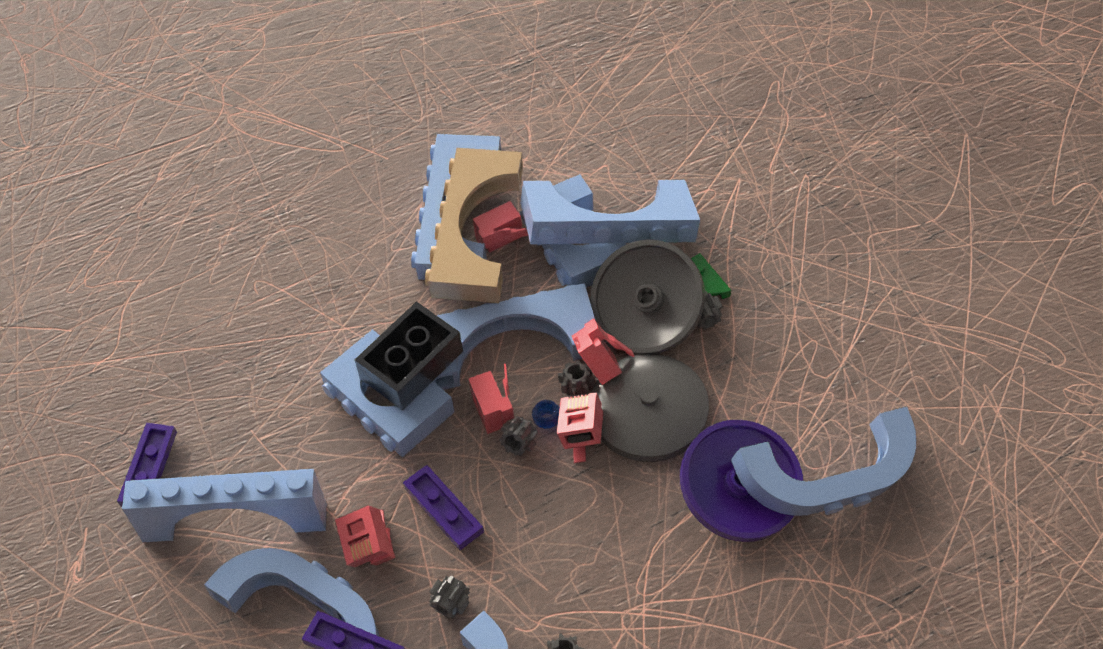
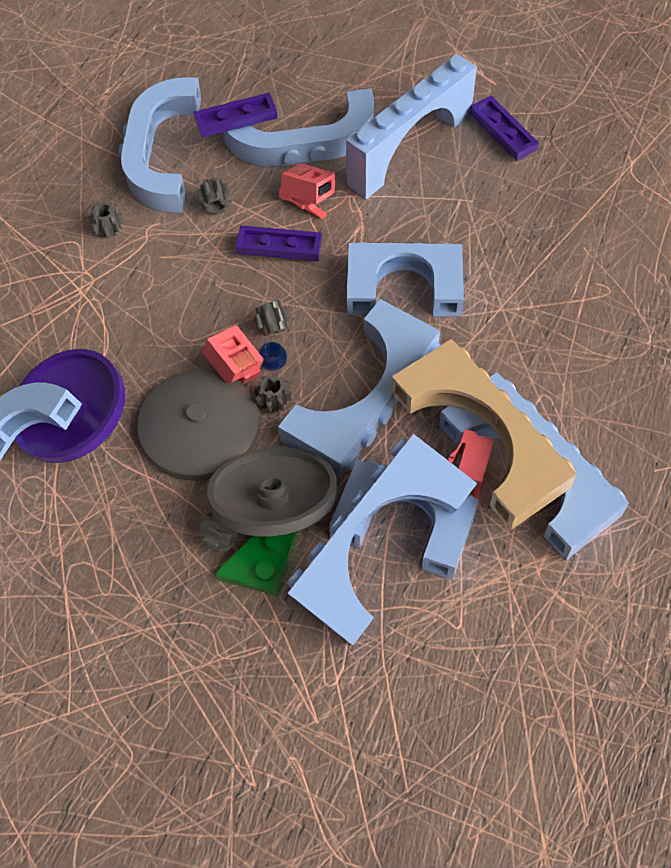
camera: 135 degrees right, 5 degrees up
(409, 355) = (400, 281): black brick -> none
(490, 404) = (319, 324): coral piece -> none
(596, 353) = (266, 411): coral piece -> none

